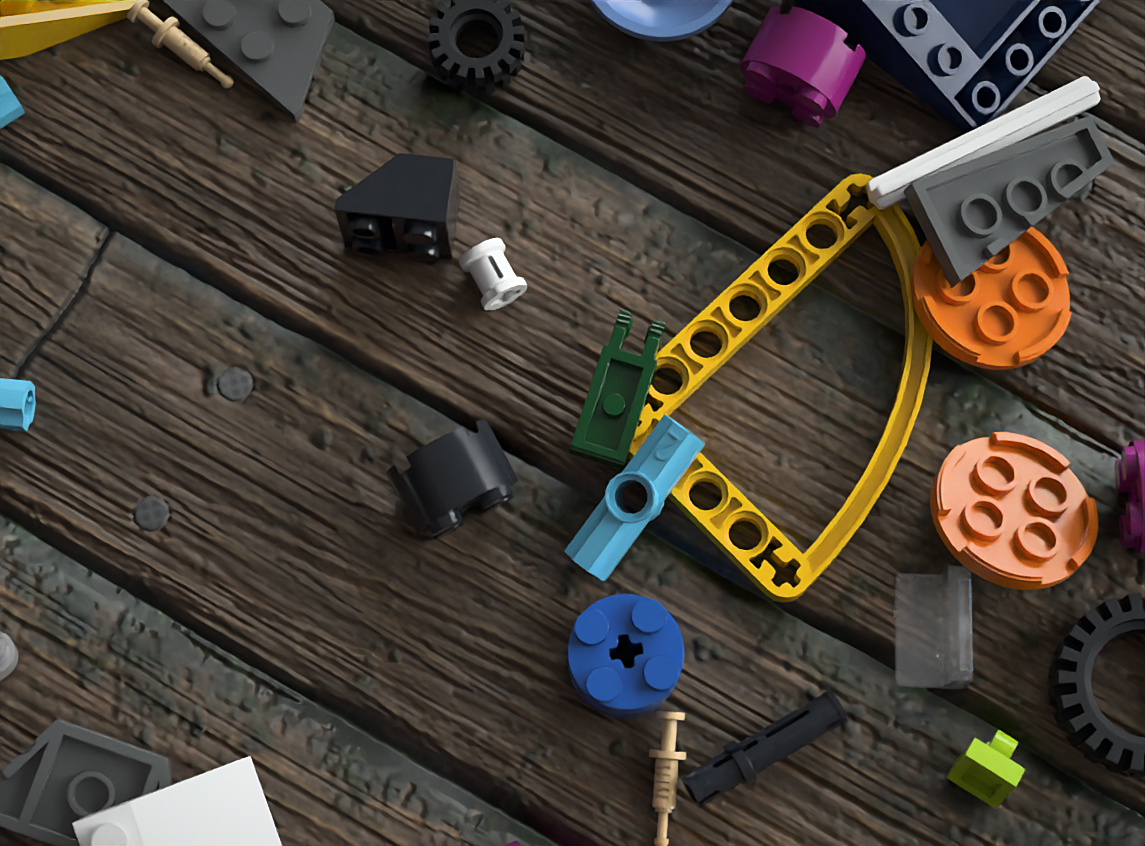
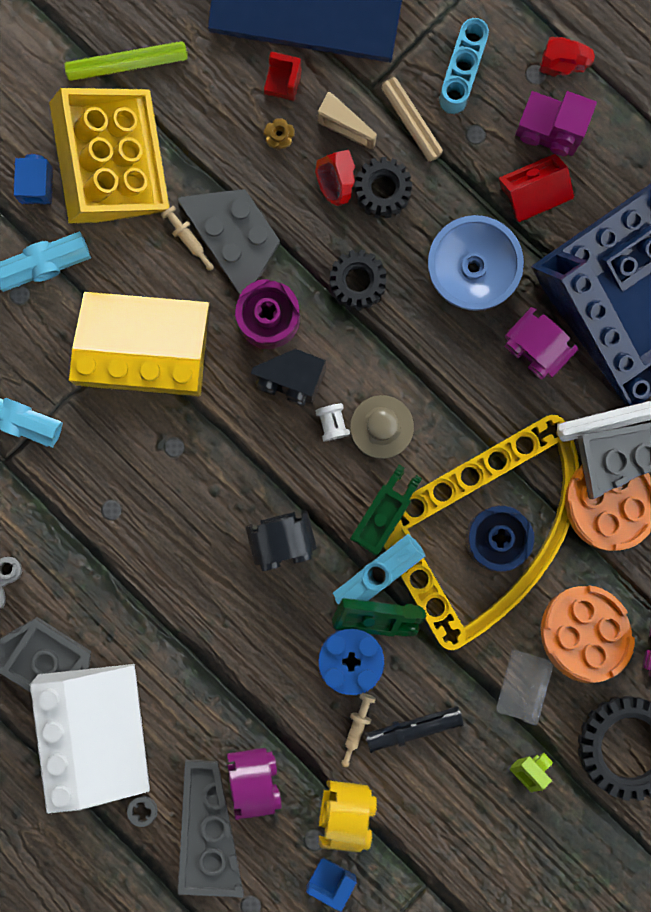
camera: 15 degrees right, 10 degrees up
(138, 231) = (140, 344): none -> yellow slope
(361, 107) = (273, 297): none -> magenta brick
(577, 264) = (382, 427): none -> dark tan plate
(652, 568) = (378, 617): none -> dark green hinge
(840, 366) = (512, 525): none -> dark blue brick

